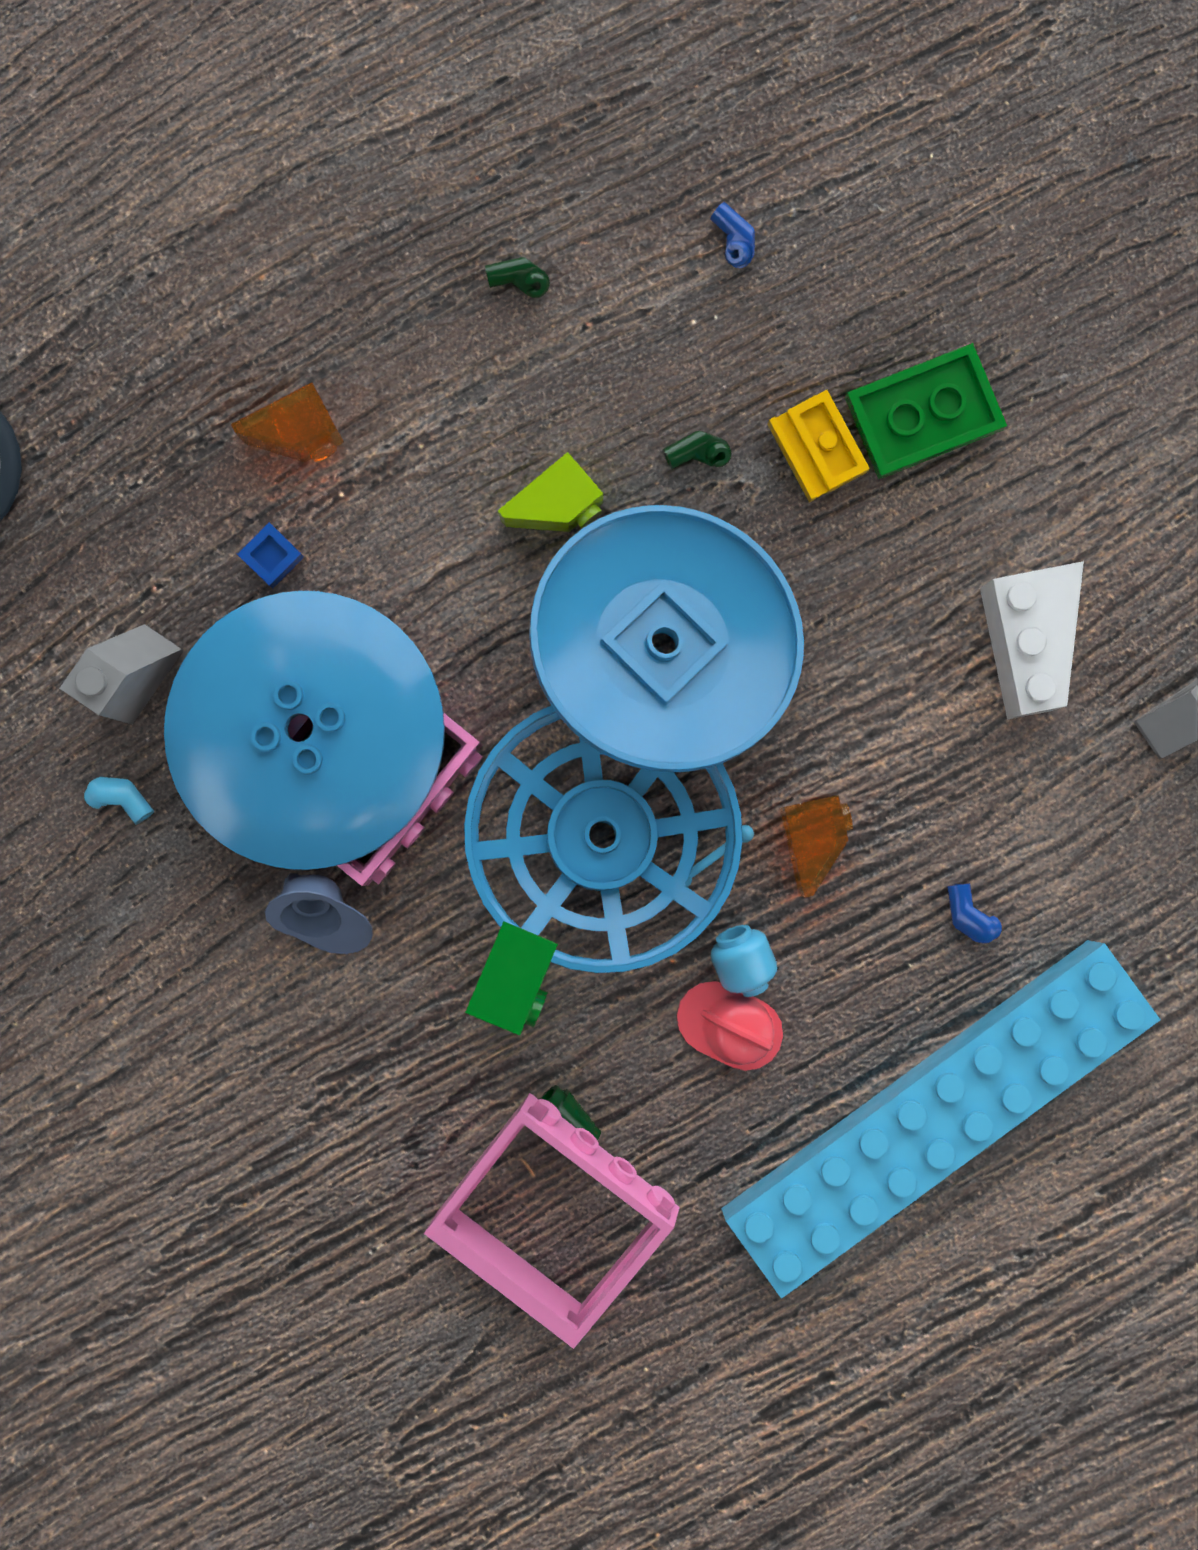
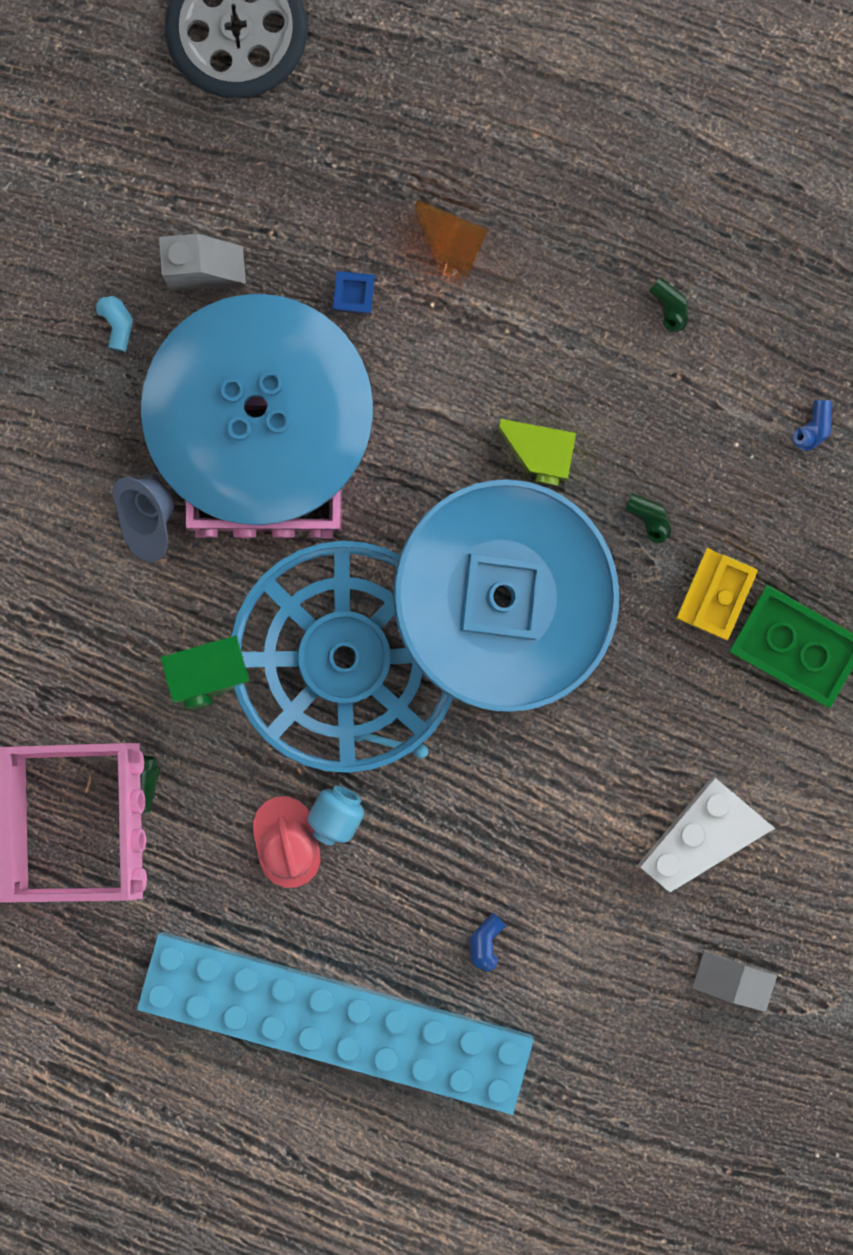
camera: 55 degrees right, 0 degrees up
(815, 839) = (454, 798): clear orange slope -> none

